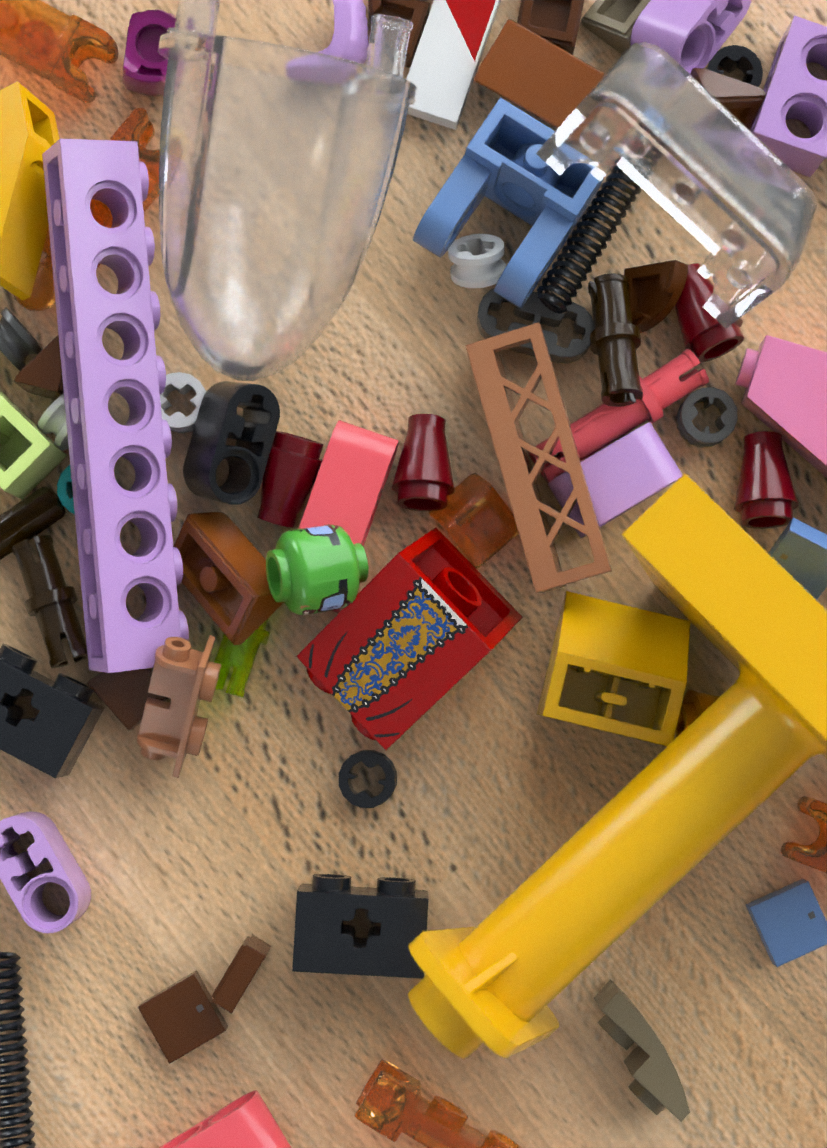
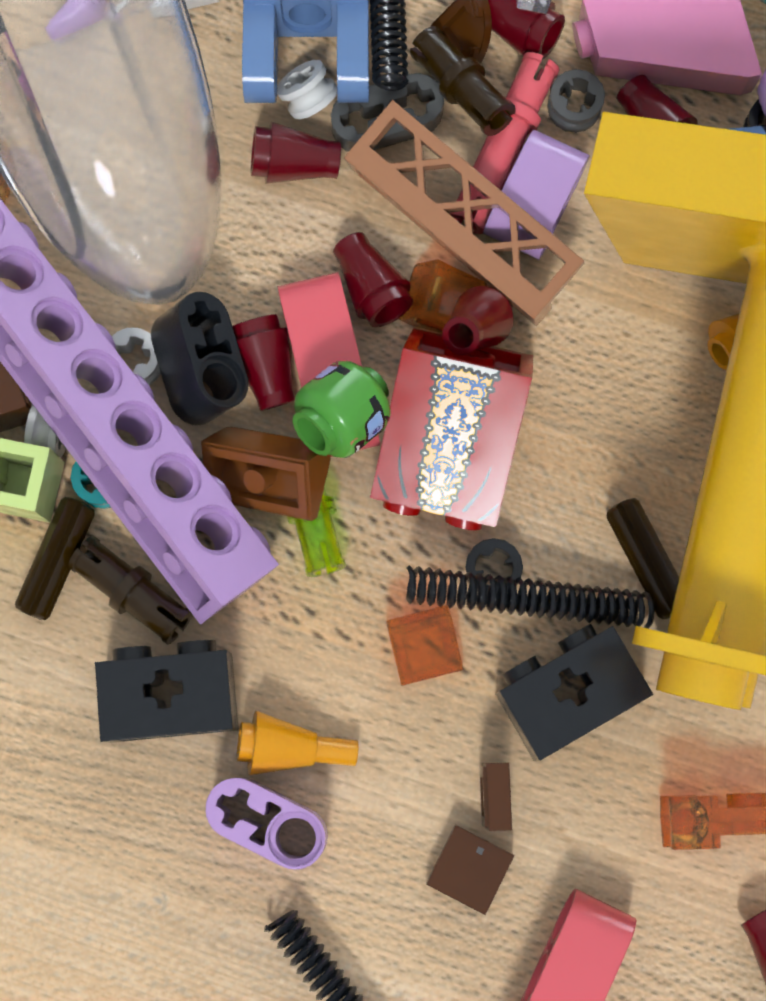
camera: 30 degrees left, 5 degrees down
(90, 812) = (279, 745): none -> light orange cone
(125, 694) = (248, 622): reddish brown tile -> none
(185, 678) = (291, 573): nougat hinge -> none
(266, 806) = (424, 645): none -> clear orange slope
(424, 868) = (551, 604): none -> black piece
(428, 311) = (292, 155): none -> dark red cone
(486, 563) = (478, 321): none -> dark red cone
(503, 849) = (645, 553): none -> dark brown axle
(617, 669) = (642, 346): yellow slope -> none

